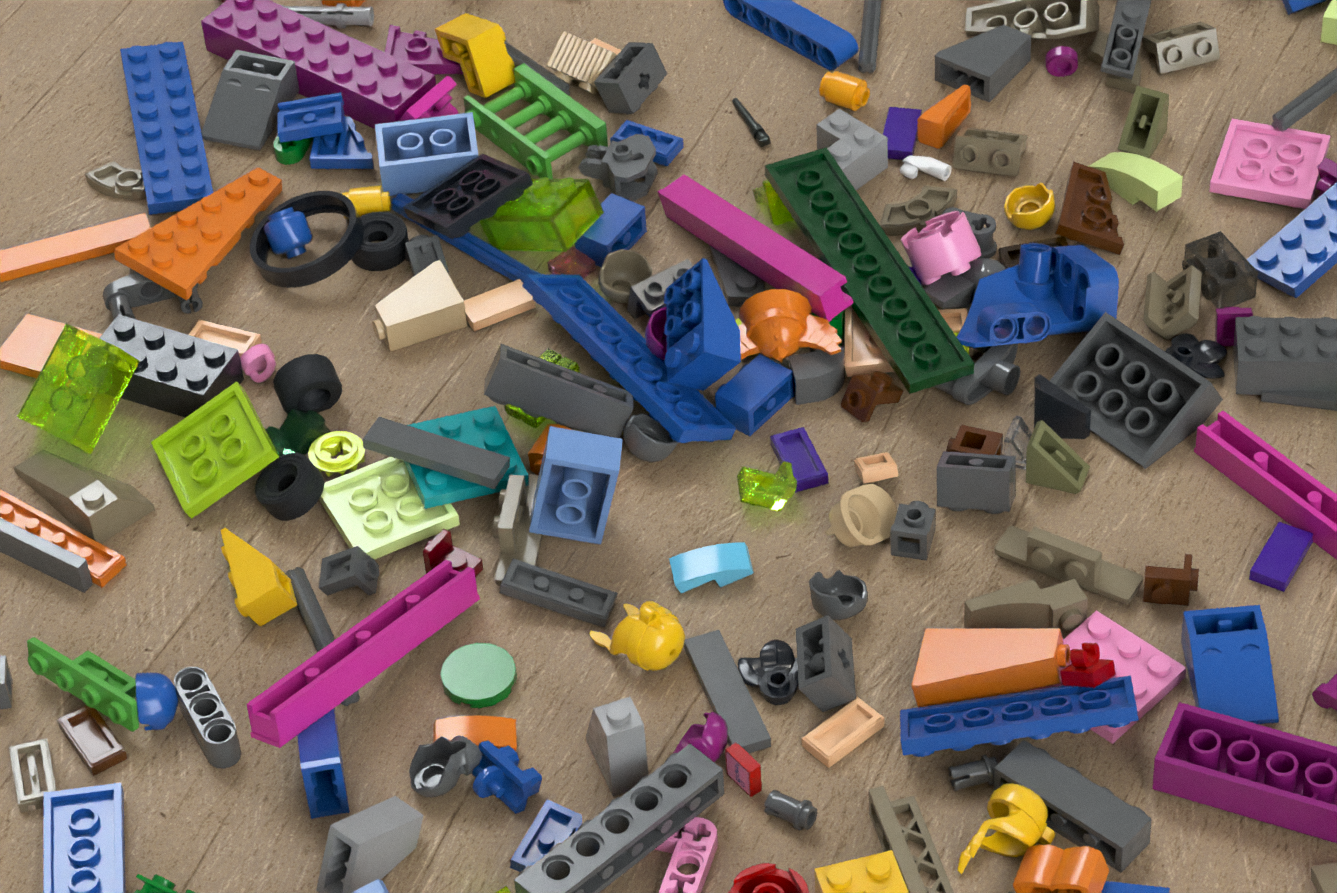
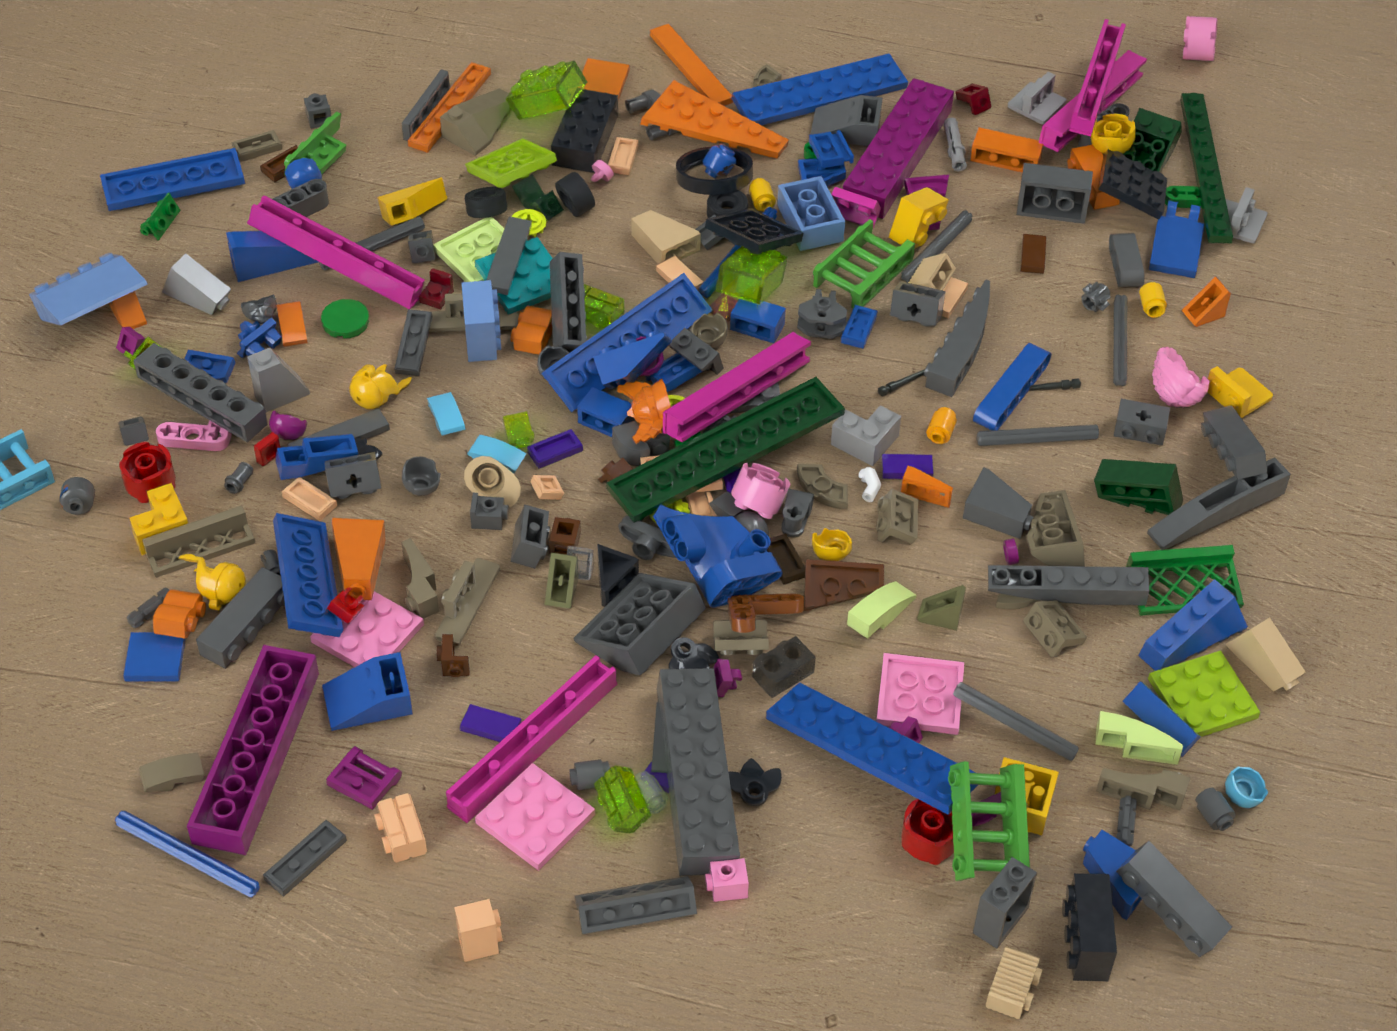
camera: 75 degrees right, 5 degrees up
(703, 53) = (960, 346): none -> dark grey slope
(781, 705) = (311, 456): none -> blue slope
(800, 515) = (501, 451): none -> medium azure slope
(1161, 279) = (744, 608): none -> dark orange beam

